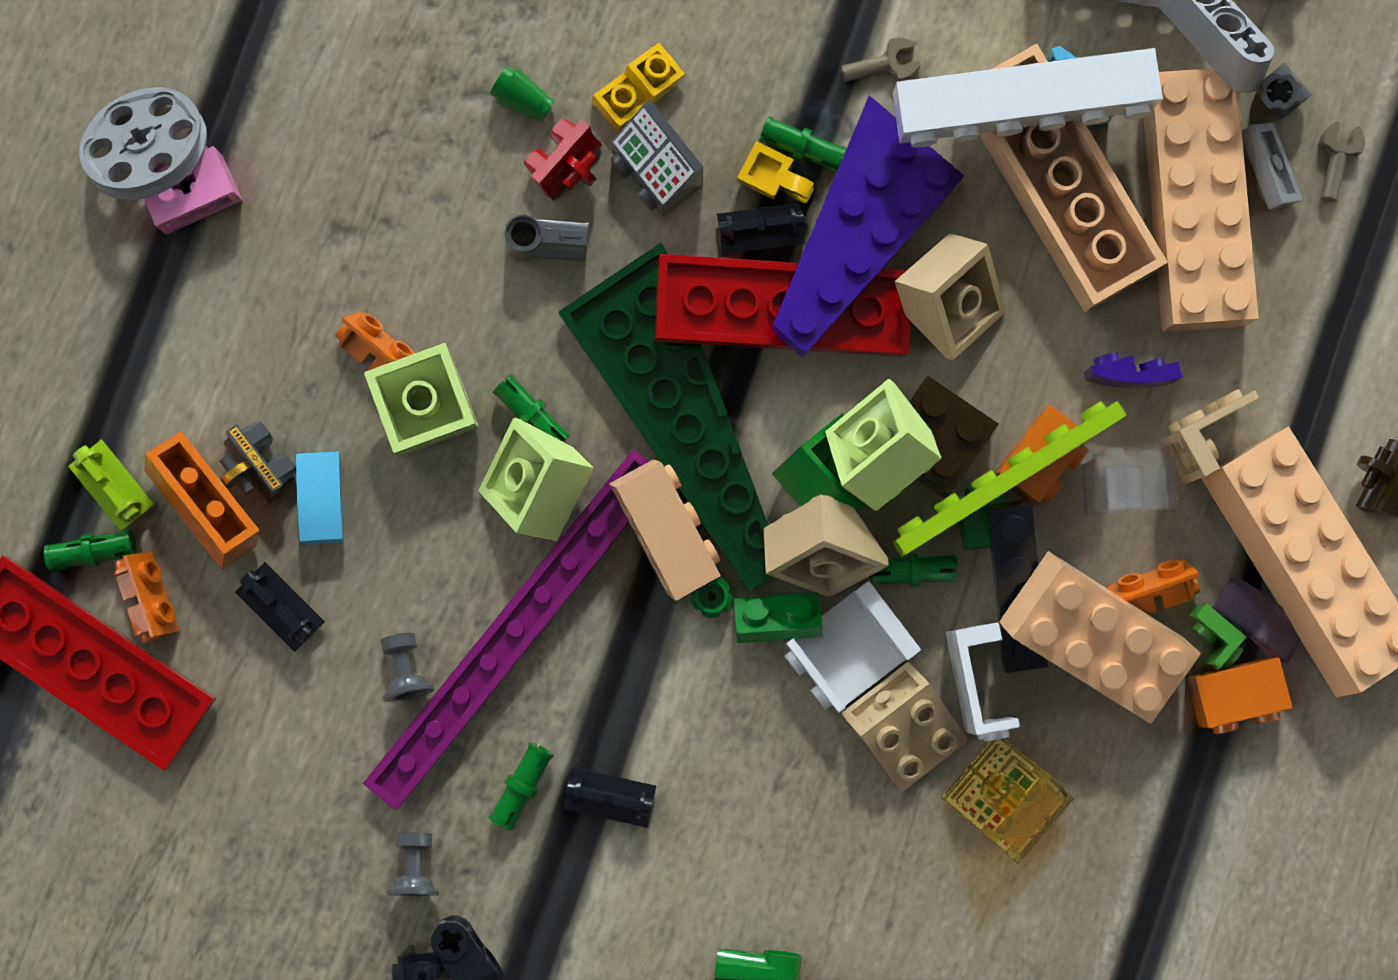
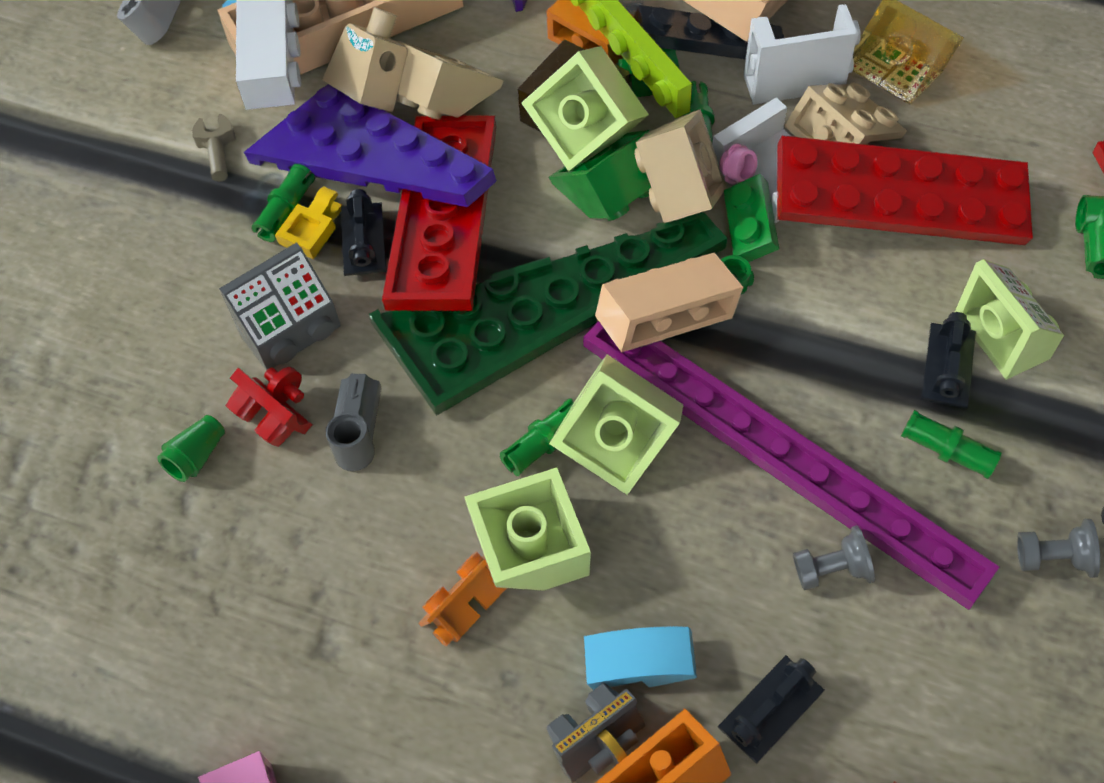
camera: 85 degrees left, 25 degrees down
(643, 80) = (203, 343): yellow slope -> none
(648, 860) = (1008, 319): none -> yellowish green slope
(801, 772) = (903, 190): none -> red plate
(840, 606) = (738, 164): none -> bright pink plate
(960, 215) = (368, 62): none -> tan torso

